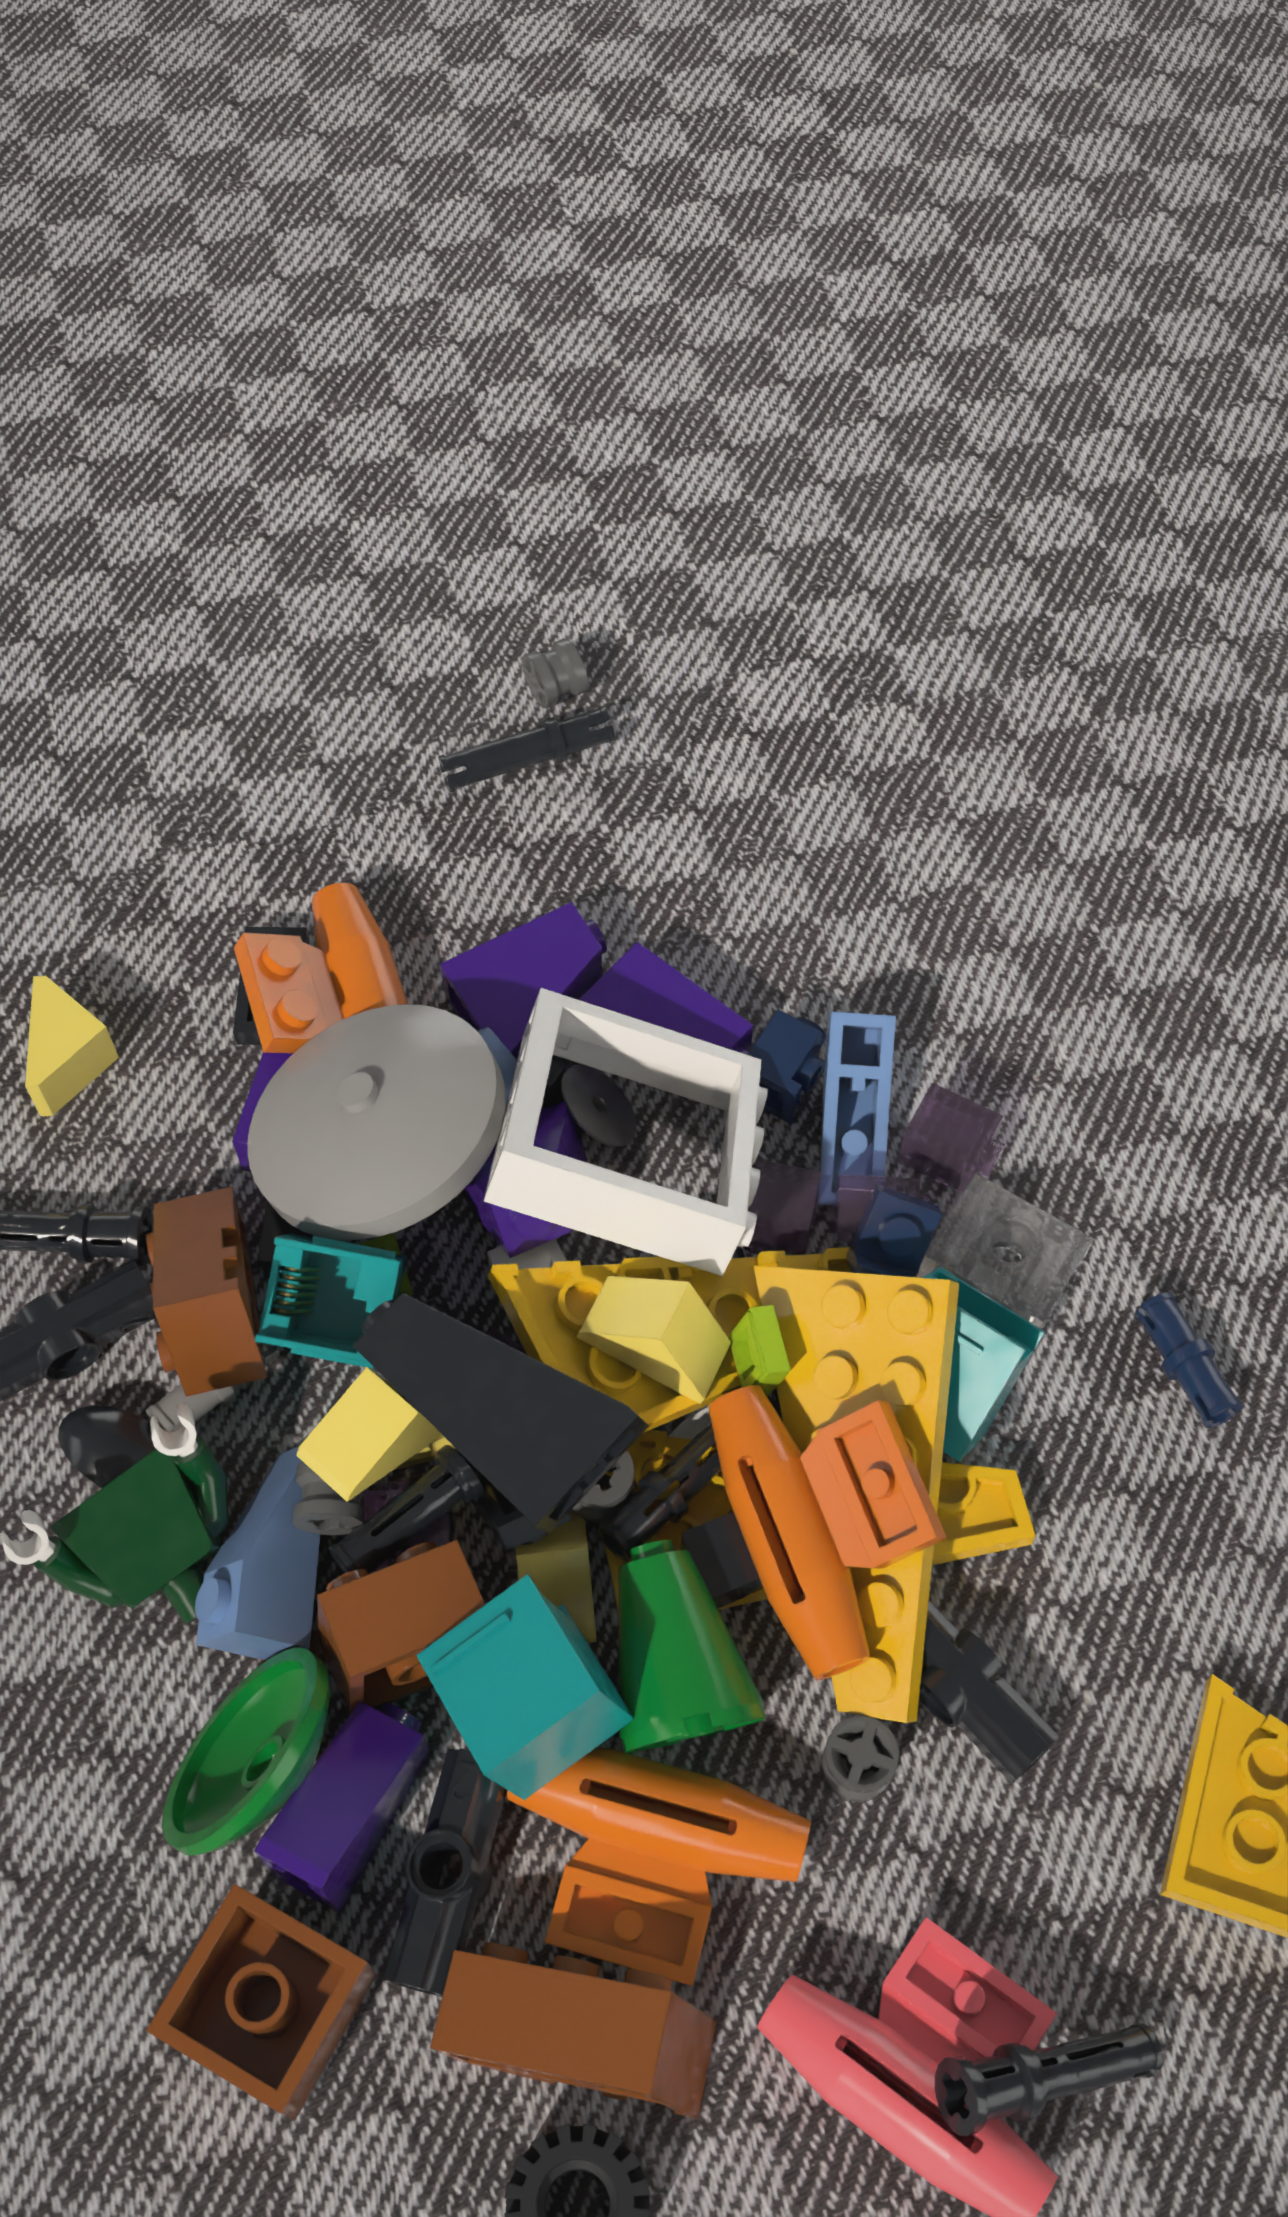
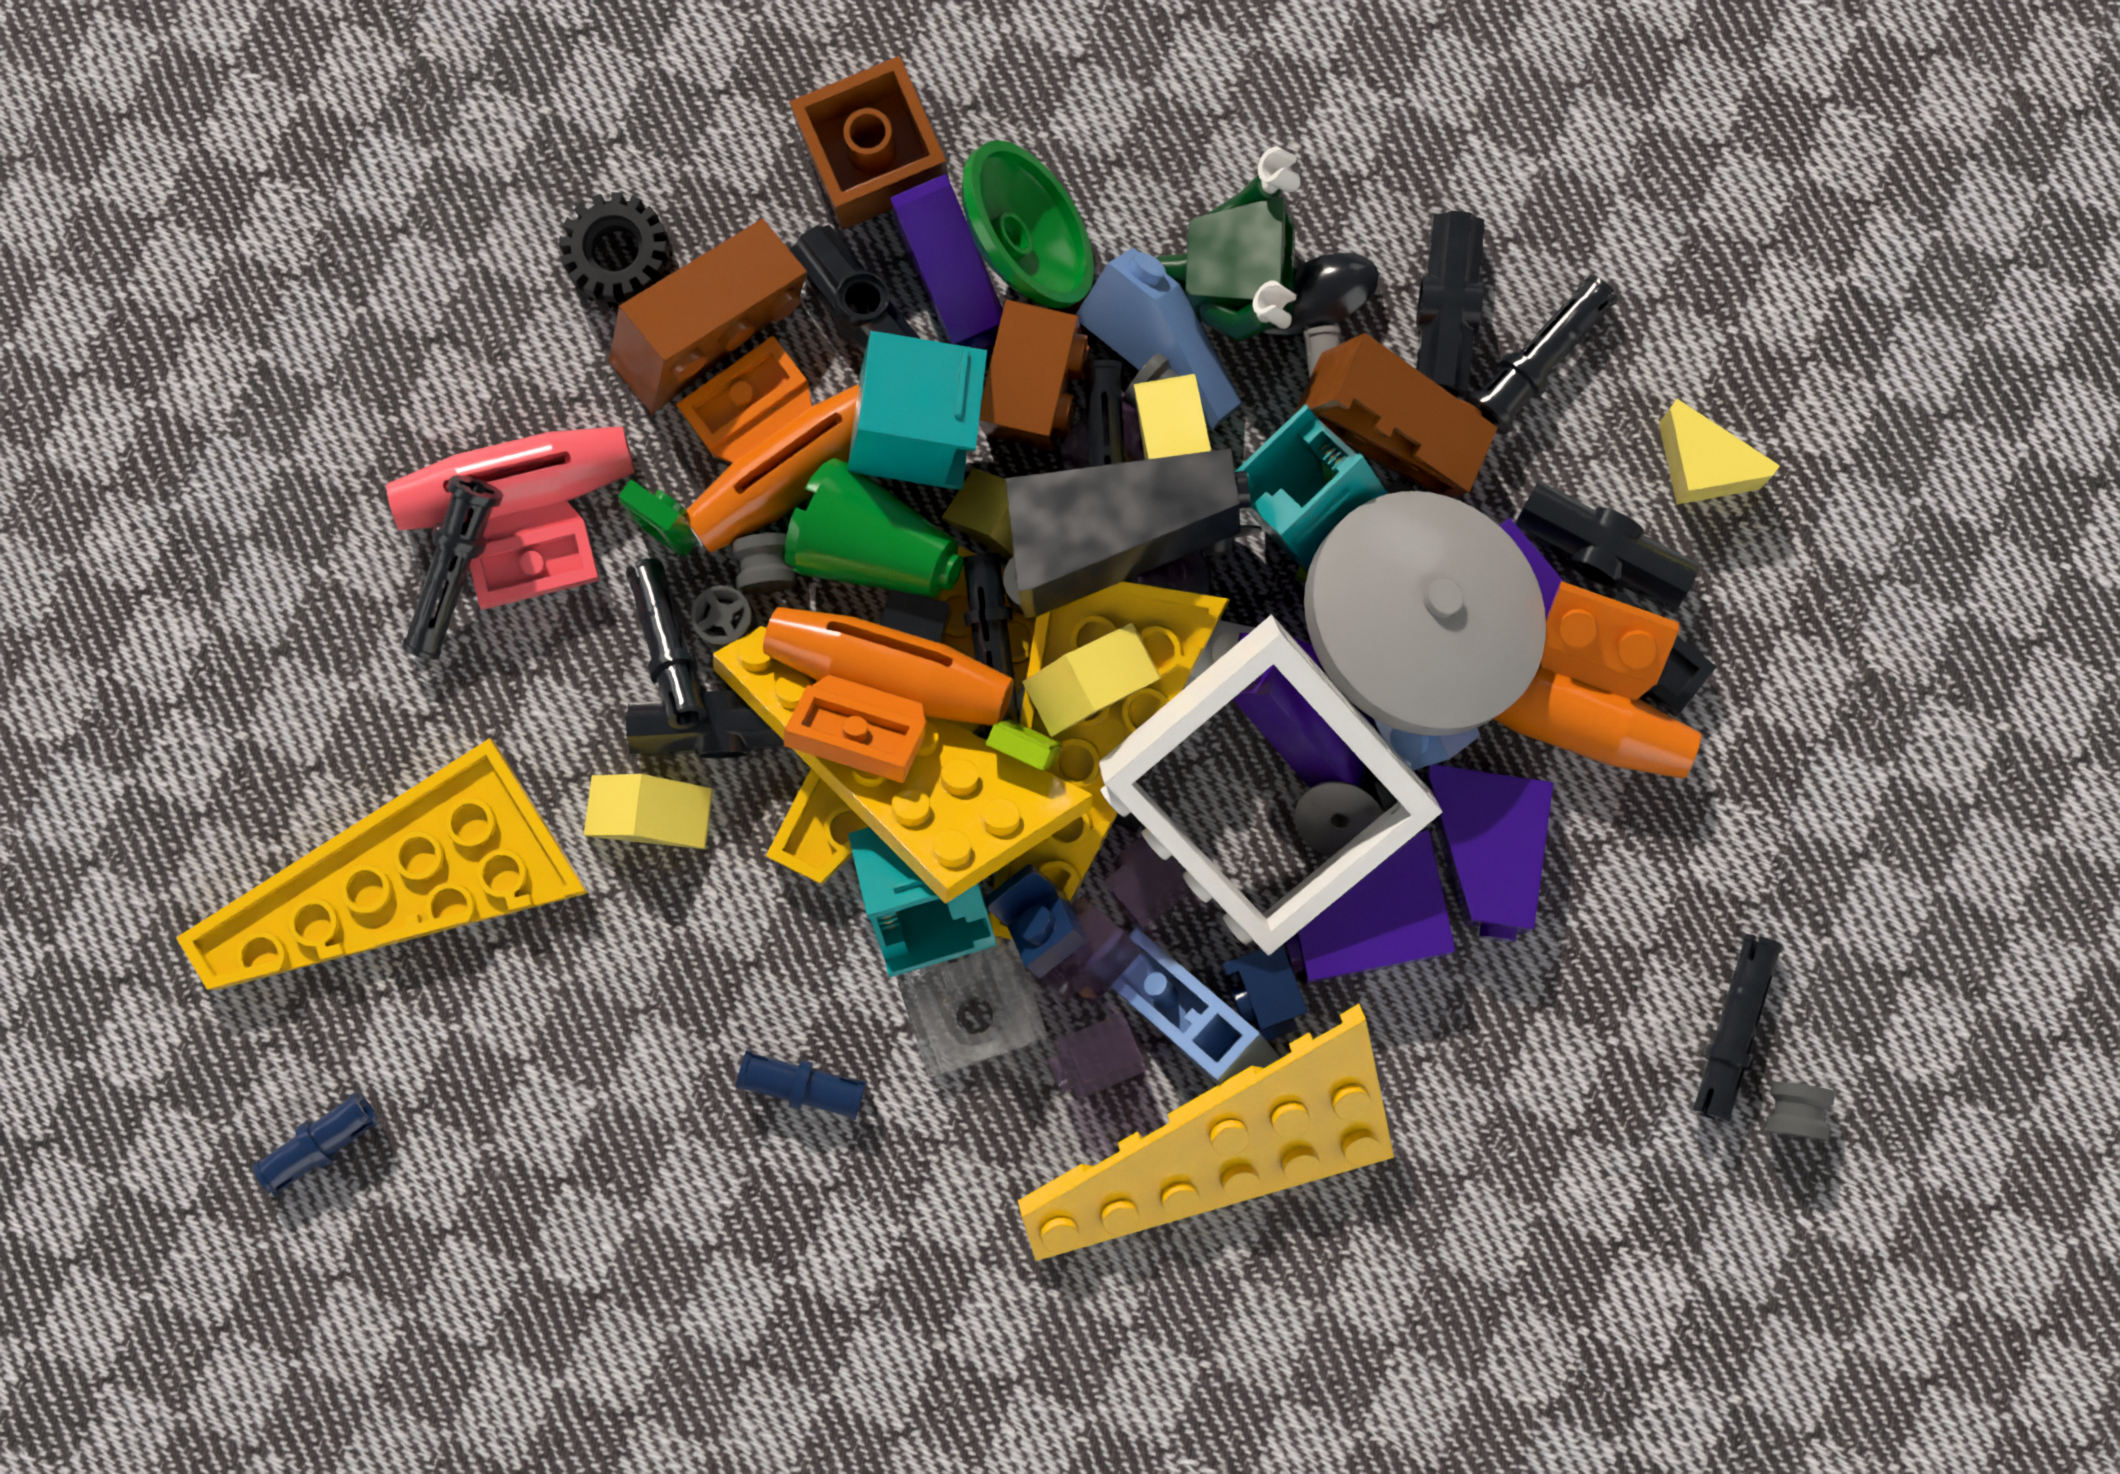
camera: 135 degrees right, 20 degrees up
(199, 1072) = (1607, 547): none -> black piece
(777, 1761) = (763, 564): none -> dark grey wheel
(823, 1887) = (659, 517): none -> green plate
(938, 999) = (1236, 1142): none -> yellow wing
(940, 1770) = (669, 656): none -> black pin
(1093, 1687) = (648, 810): none -> light yellow slope

